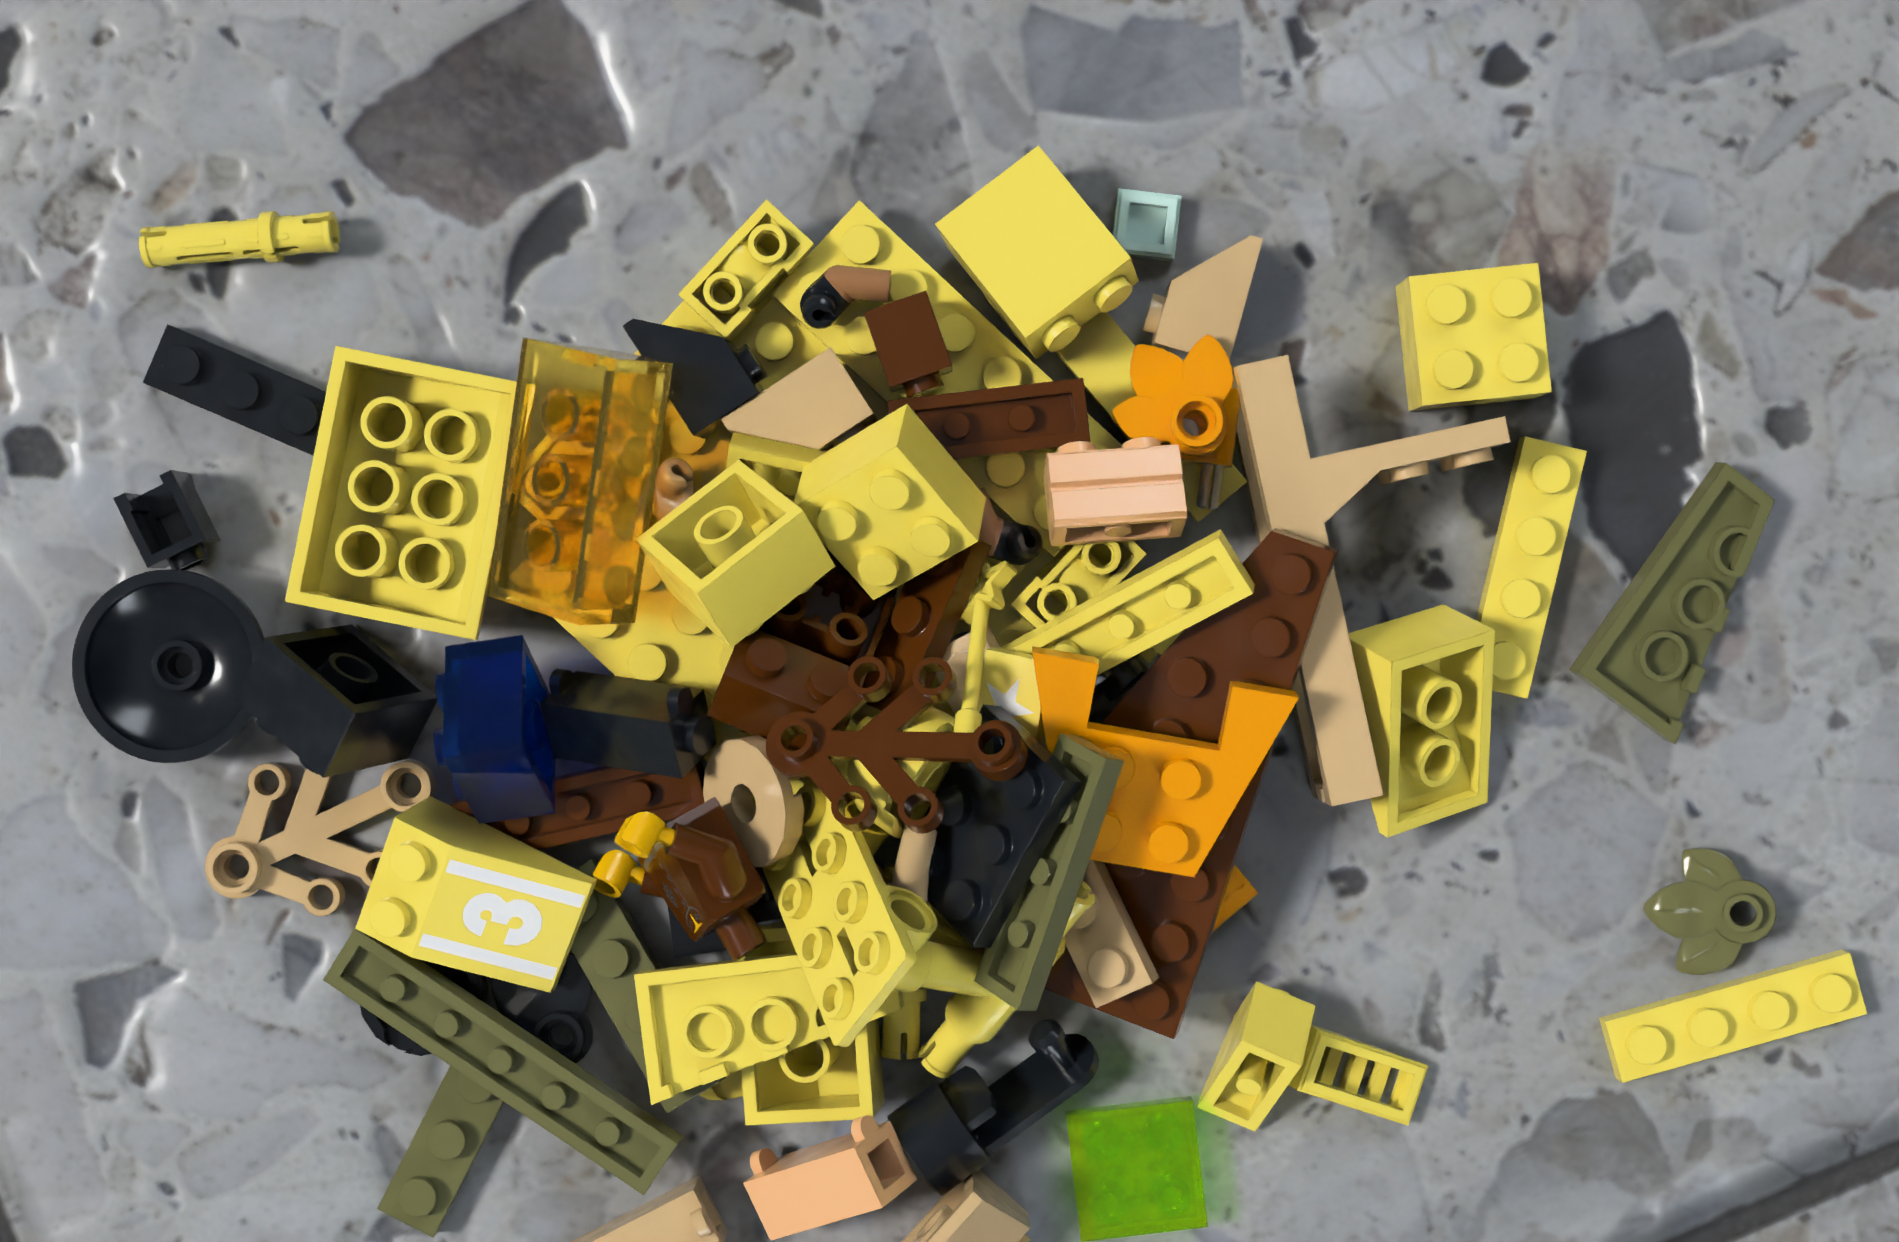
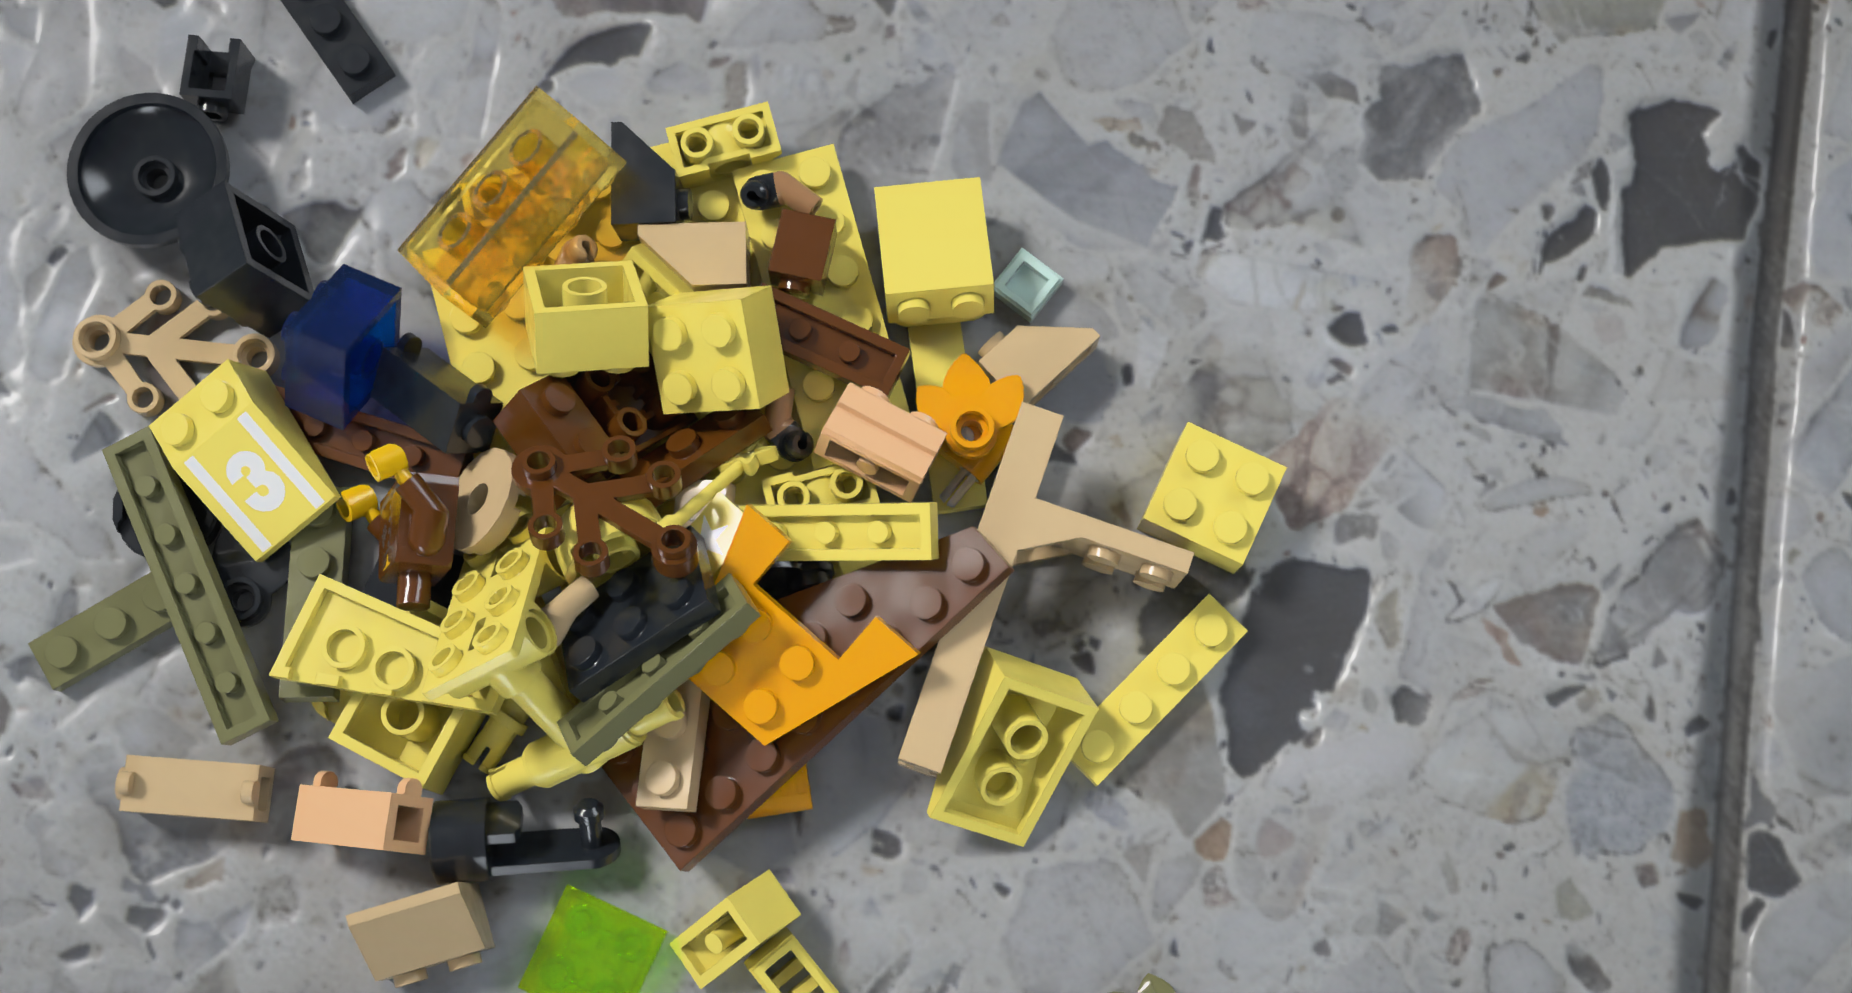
camera: 25 degrees right, 10 degrees down
(404, 494) = (384, 148): light yellow slope -> none
(1663, 623) = (1239, 788): olive wing -> none

